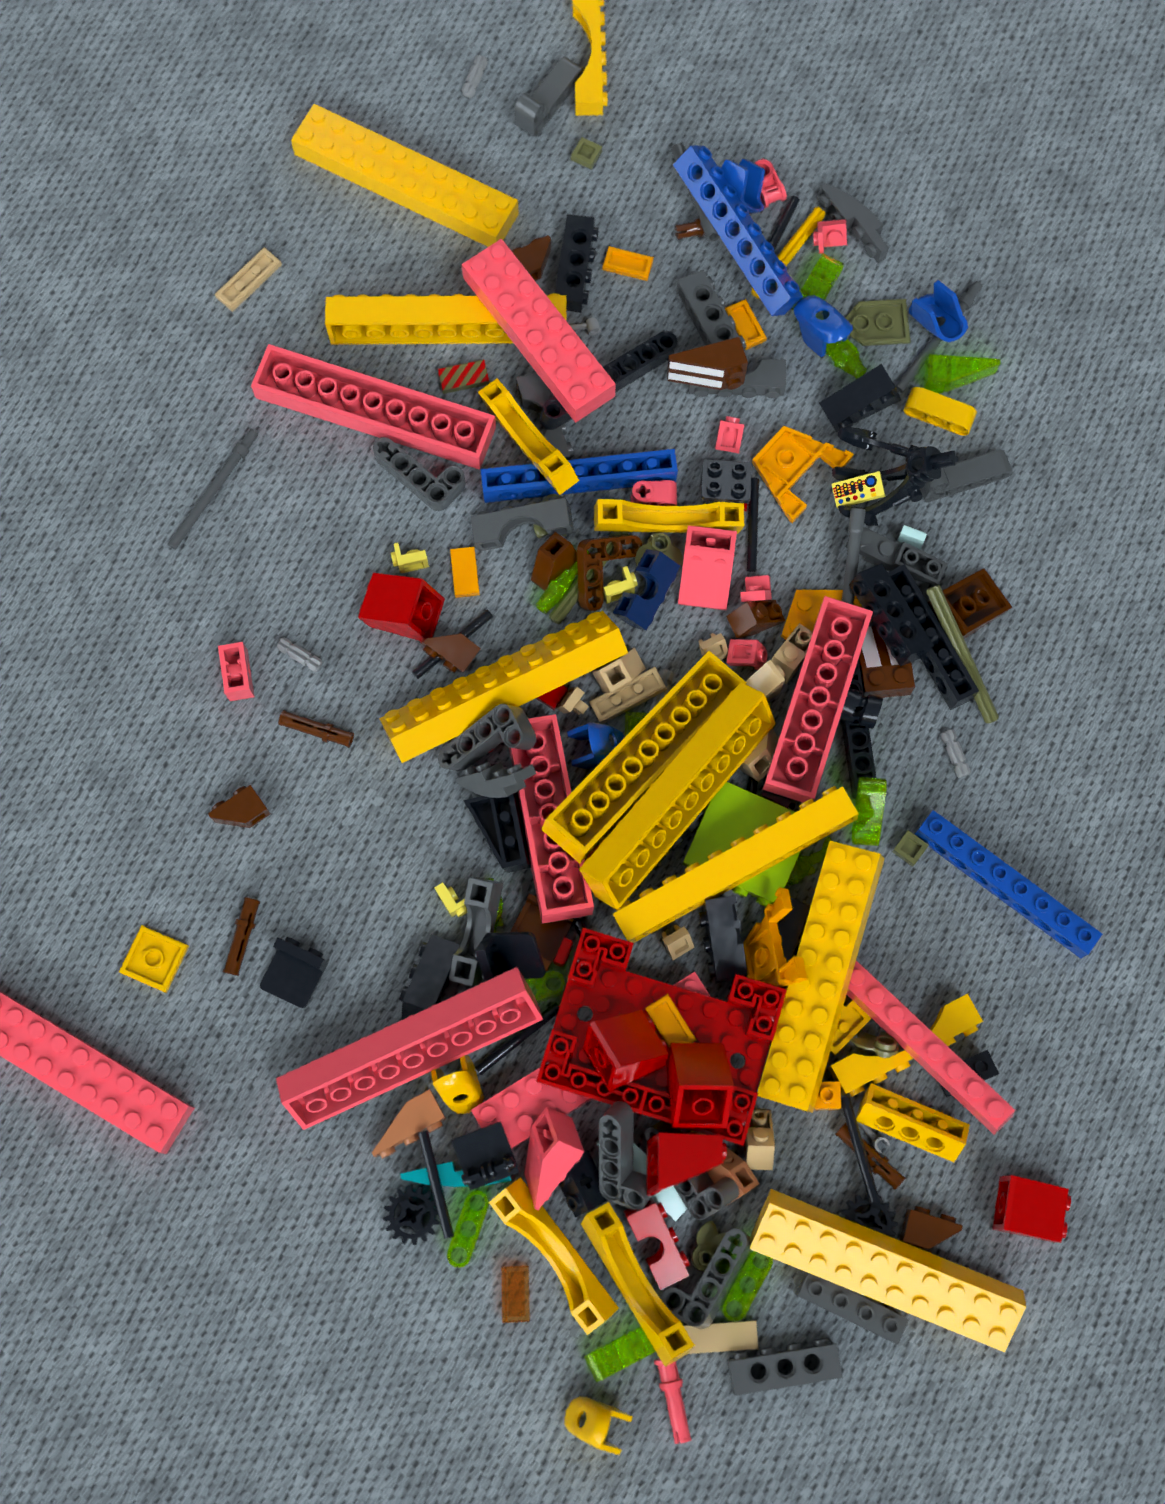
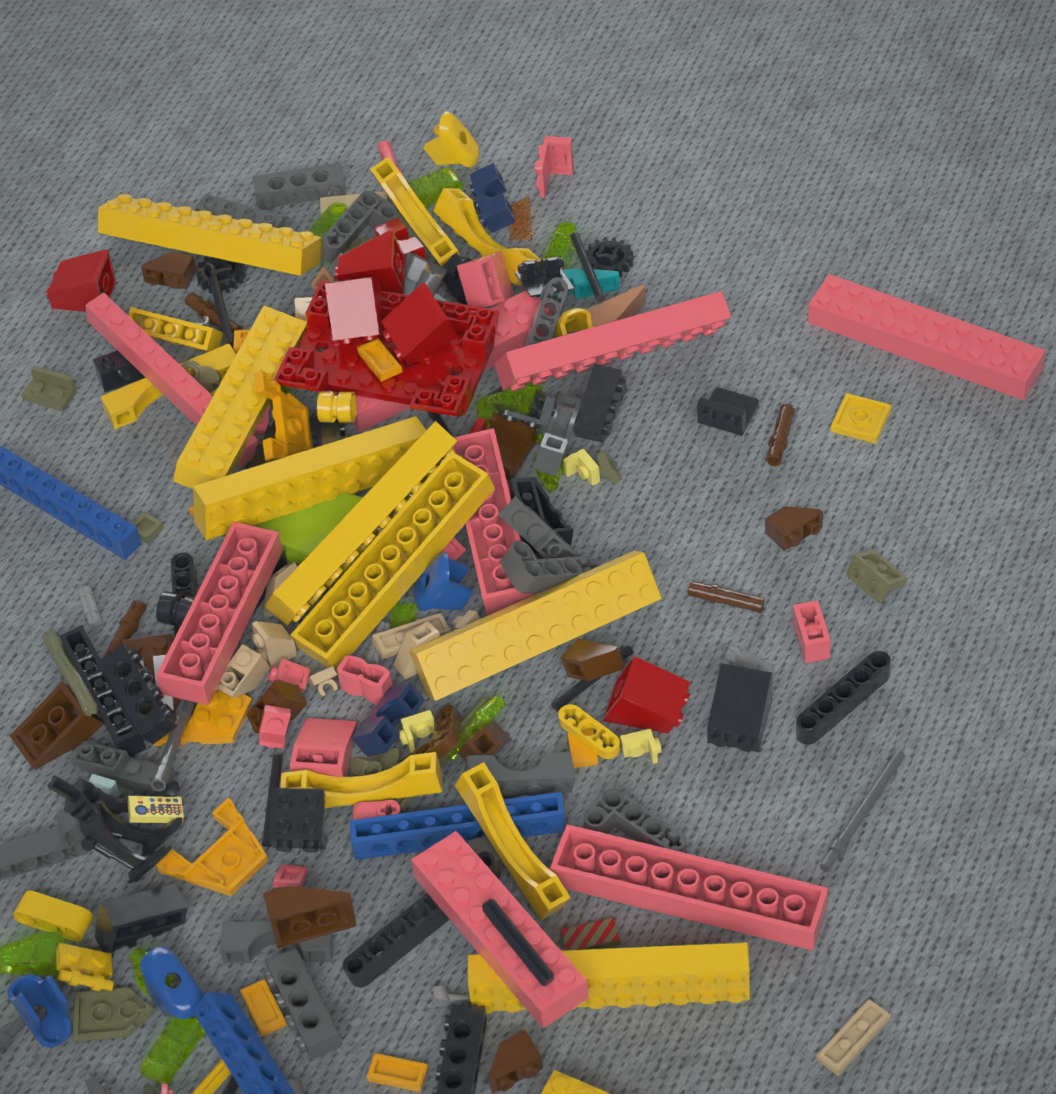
camera: 175 degrees left, 25 degrees down
(164, 746) = (875, 574): none -> olive bracket
(209, 613) = (843, 697): none -> black beam
(313, 586) = (740, 708): none -> black slope
(425, 898) = (608, 467): none -> olive plate
(439, 566) = (586, 721): none -> yellow beam
(461, 1387) = (555, 158): none -> coral bracket
(486, 1086) = (540, 319): none -> dark grey beam
(519, 289) = (518, 942): none -> black axle
(556, 1347) = (489, 189): none -> dark blue arch
(667, 636) = (363, 679): none -> coral brick
(715, 966) = (336, 407): none -> yellow wheel
(870, 806) = (181, 540): clear neon green beam -> none
(906, 356) = (84, 967): none -> yellow plate
(913, 723) = (128, 625): none -> reddish brown pin
(1044, 1051) = (50, 389): none -> olive bracket

